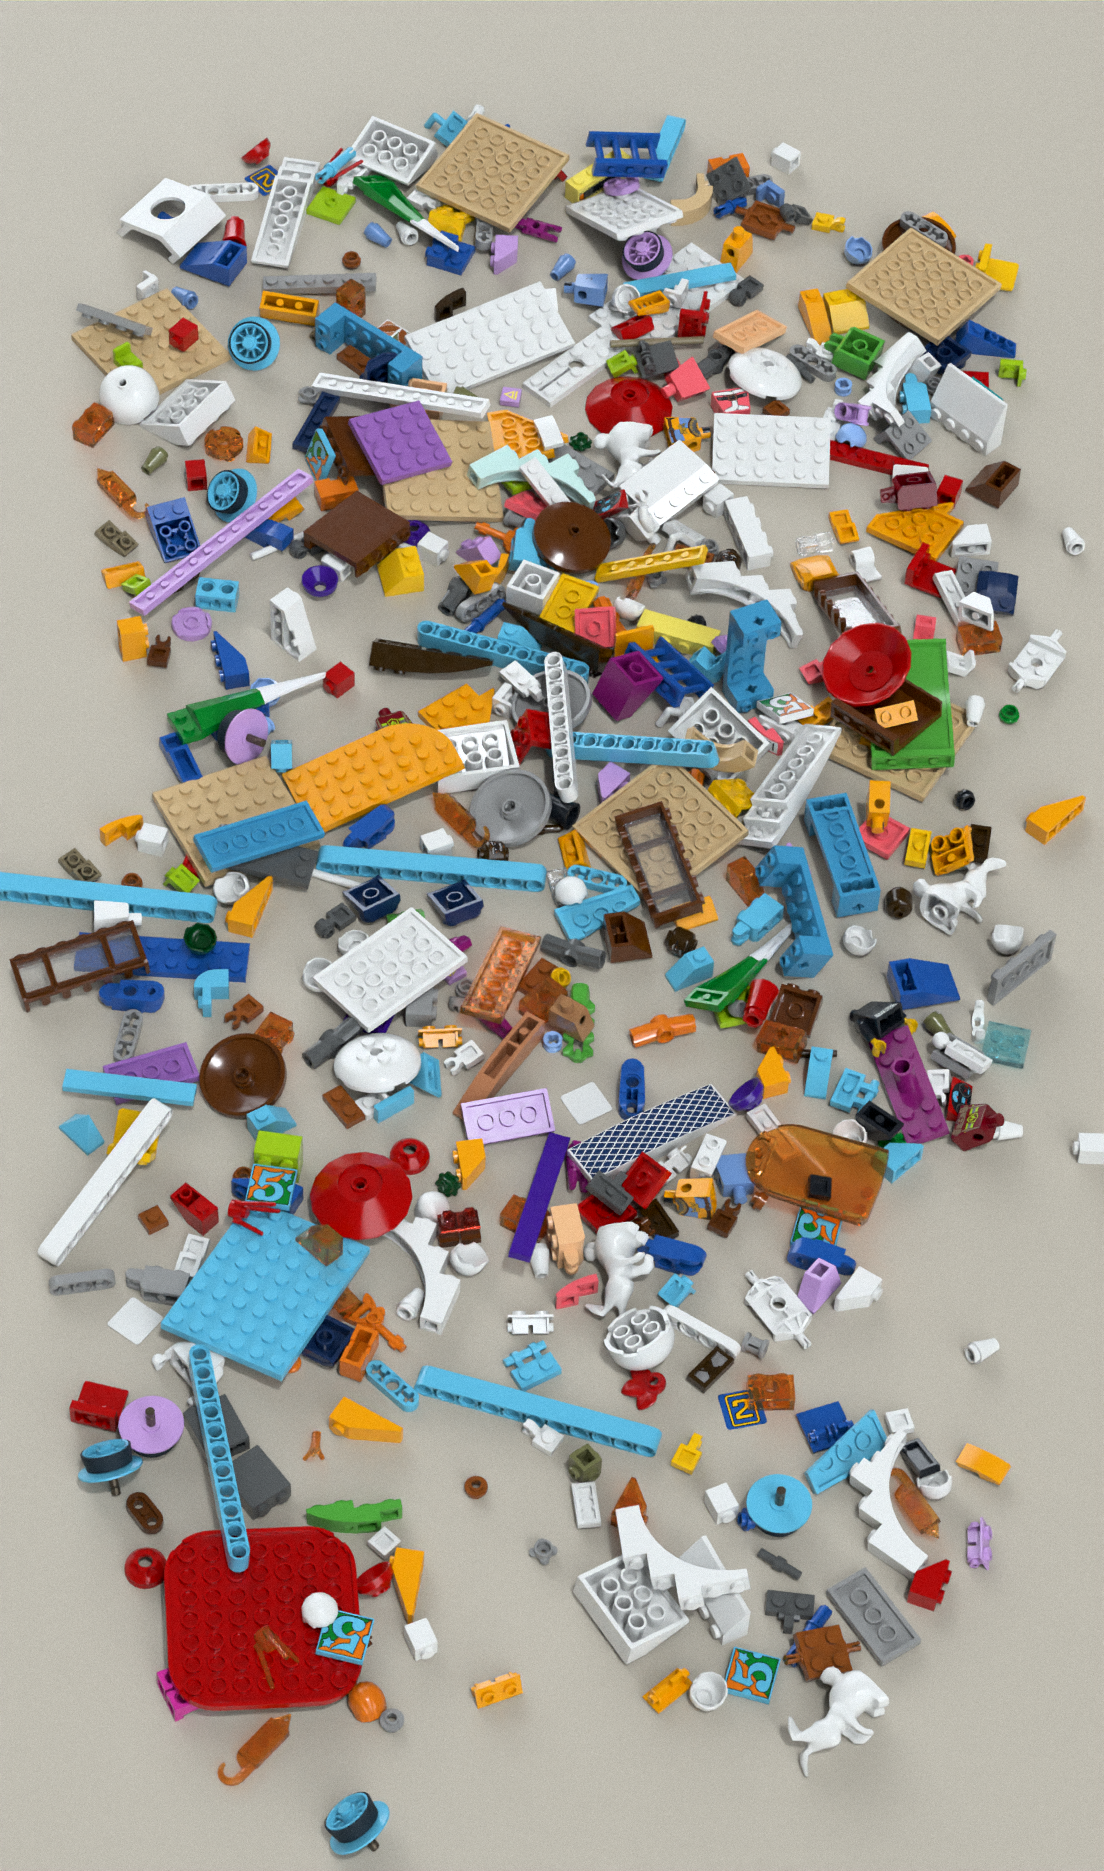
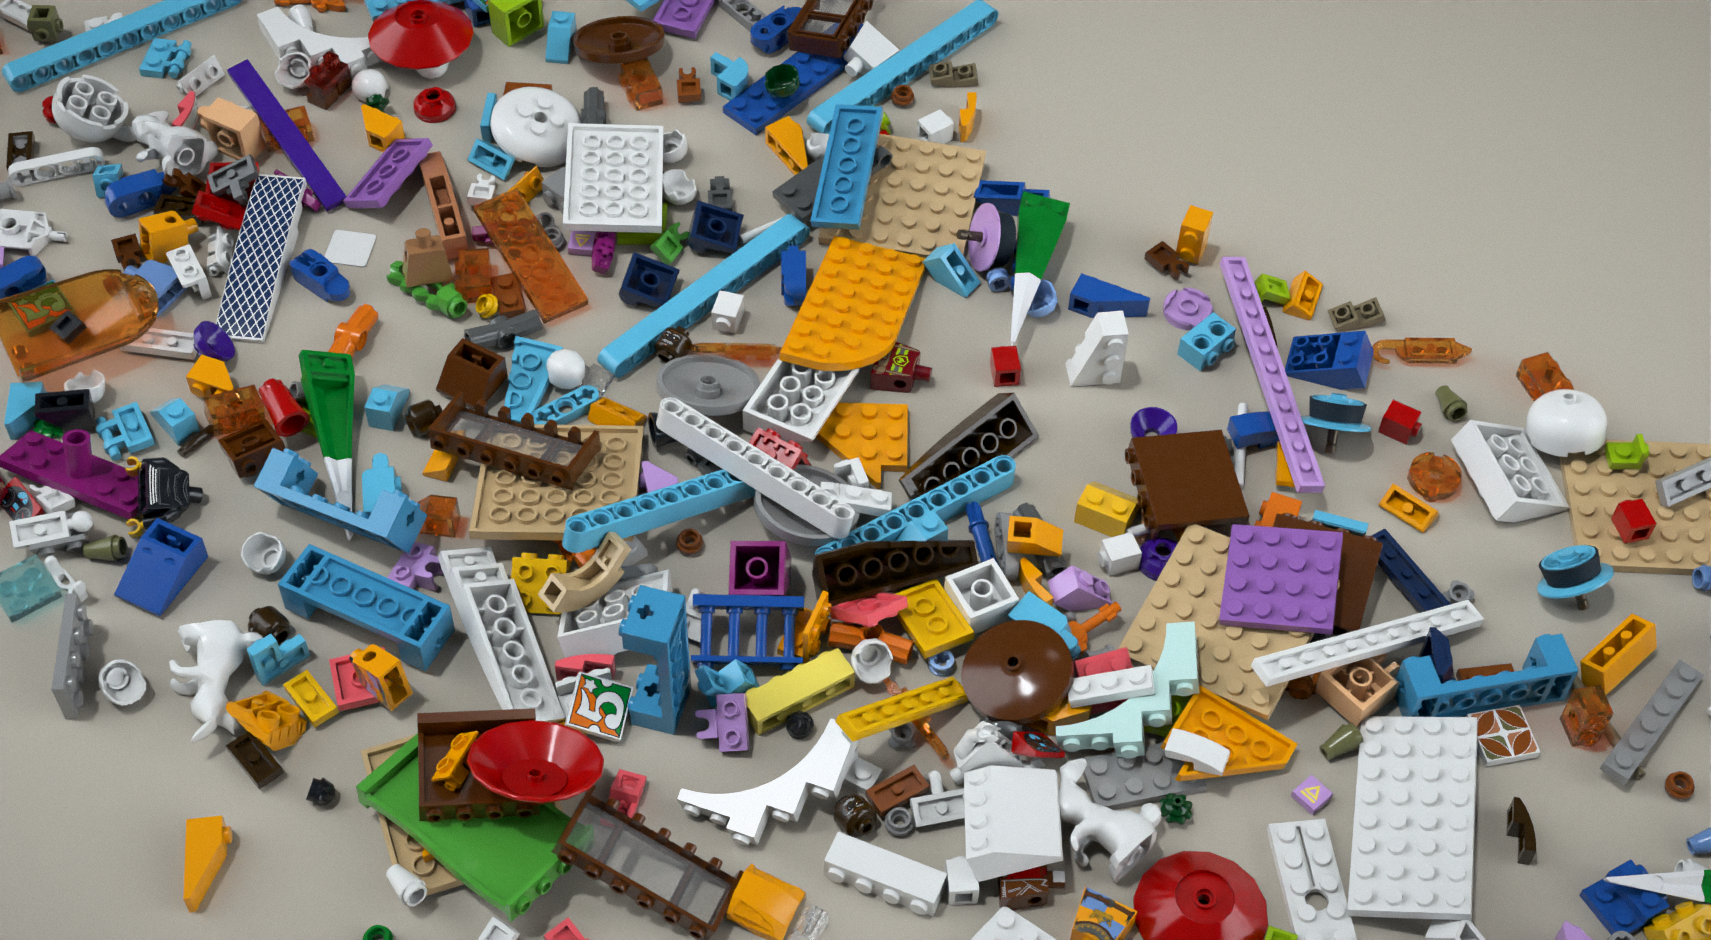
camera: 130 degrees right, 0 degrees up
(923, 869) = (273, 660): none -> medium azure plate

